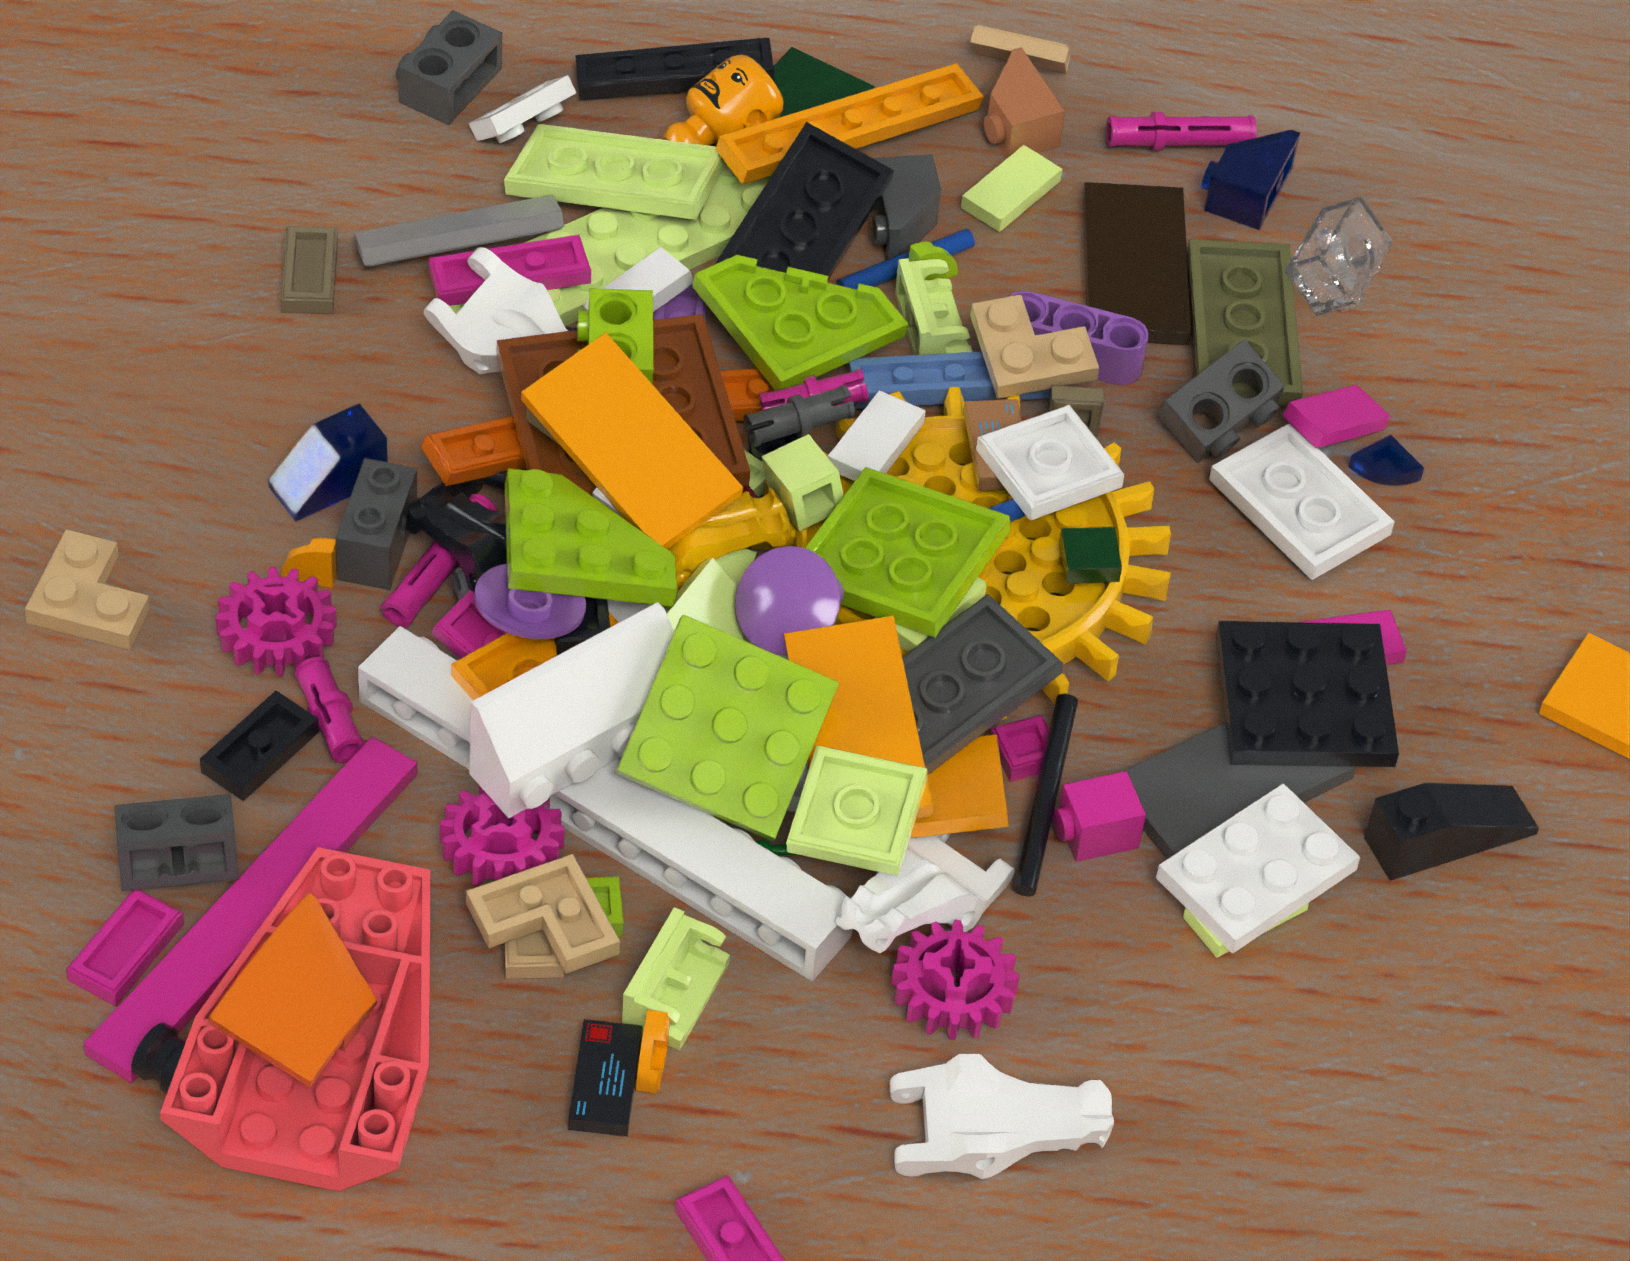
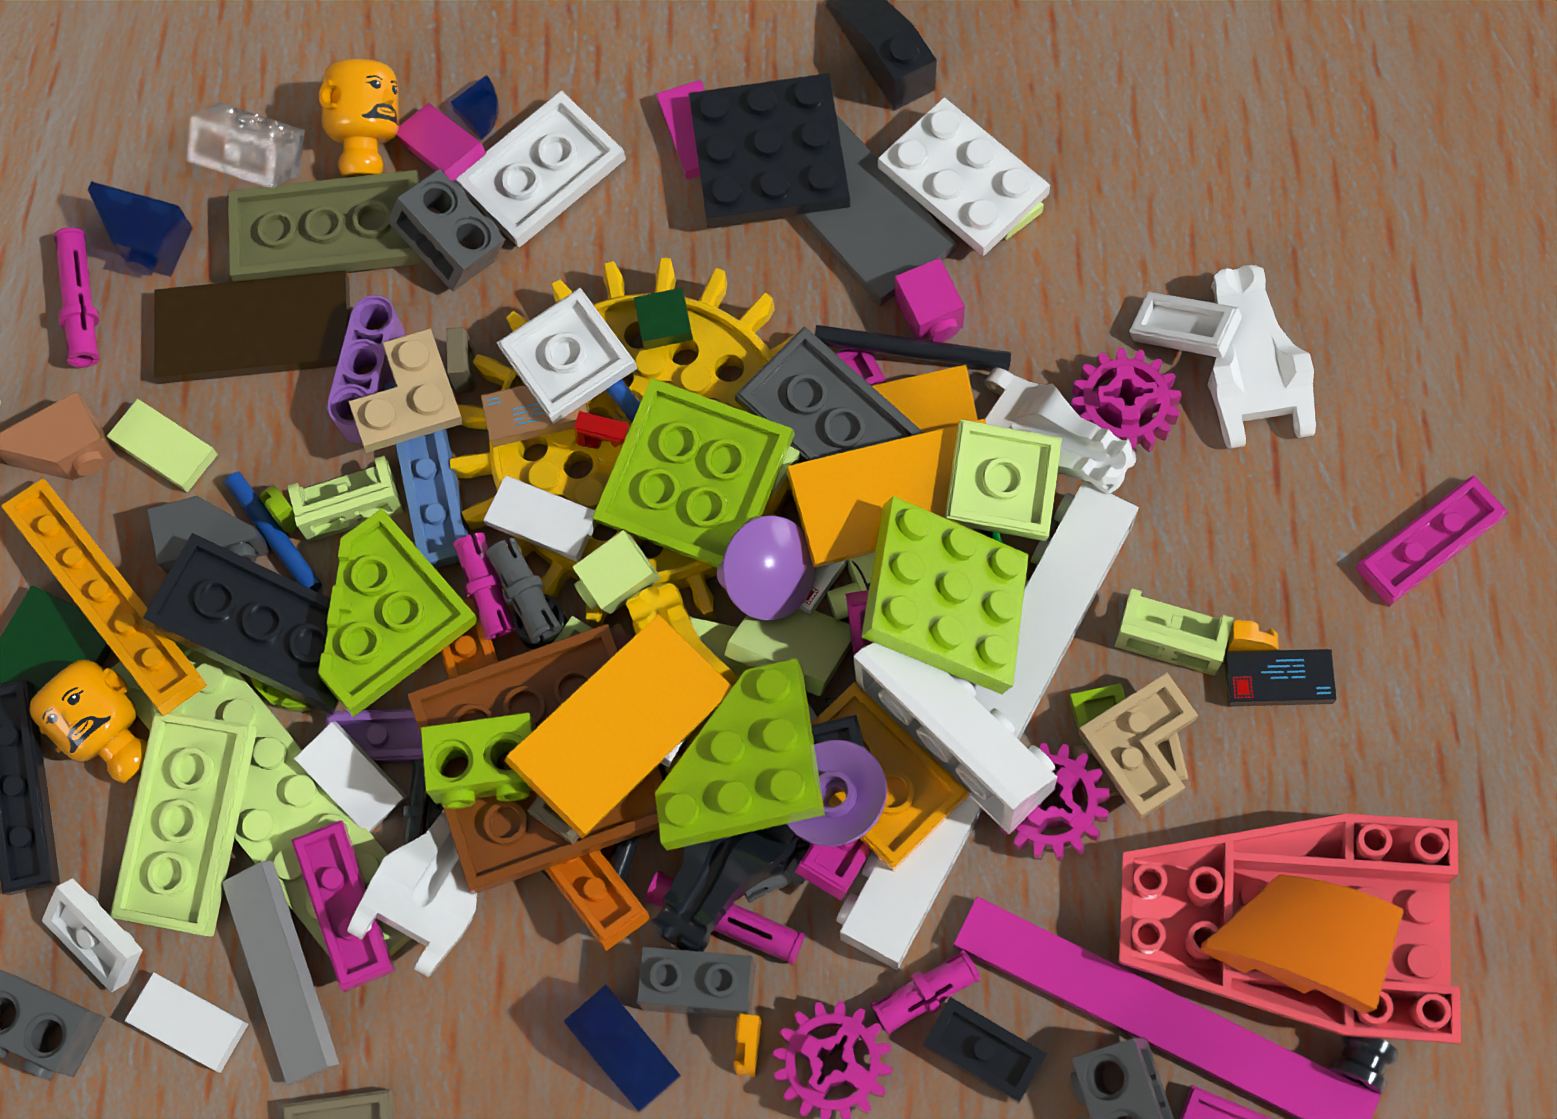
camera: 85 degrees left, 20 degrees up
(429, 173) = (186, 1022): none -> white tile
(961, 474) = (593, 429): none -> red tile
(1045, 1050) = (1185, 324): none -> white tile
(1373, 346) = (360, 112): none -> light orange piece

